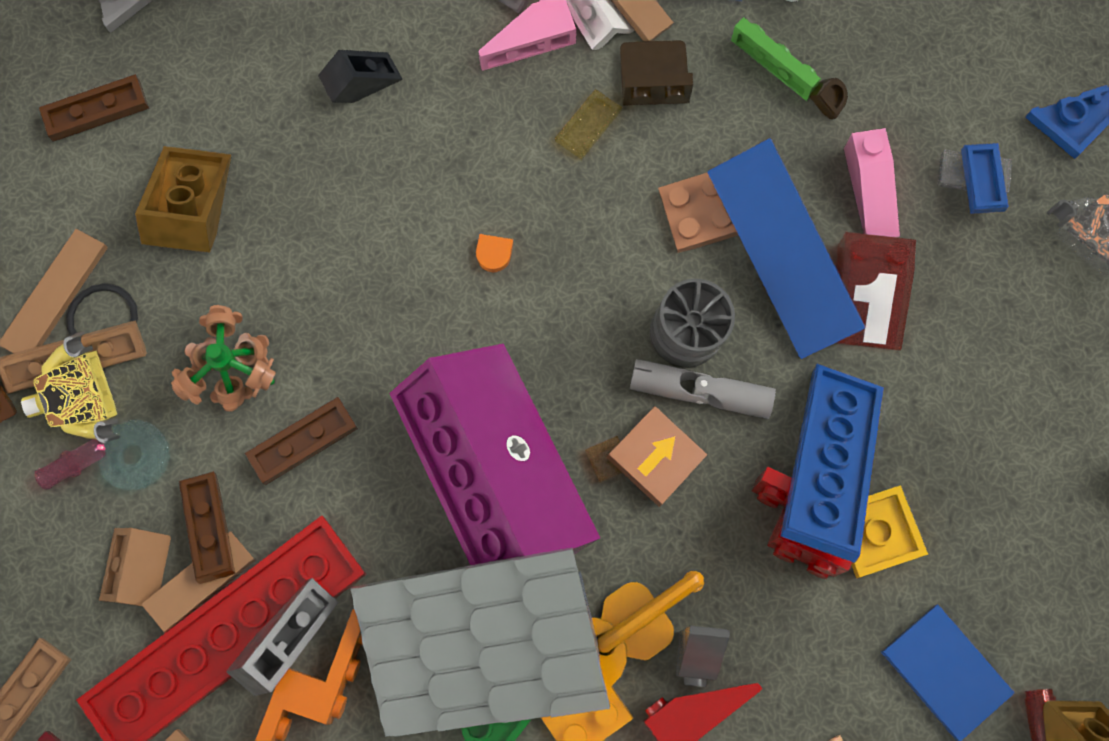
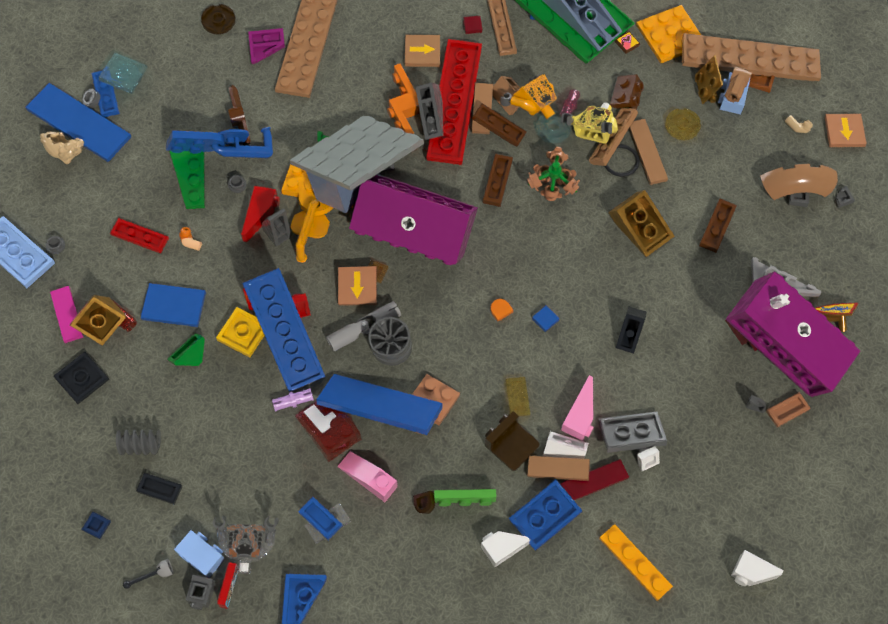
camera: 135 degrees right, 10 degrees down
(108, 514) = (533, 97): none -> light orange torso
(449, 188) = (545, 318): none -> blue tile
(887, 372) = (292, 399): none -> lavender pin
(982, 571) = (189, 353): none -> green slope

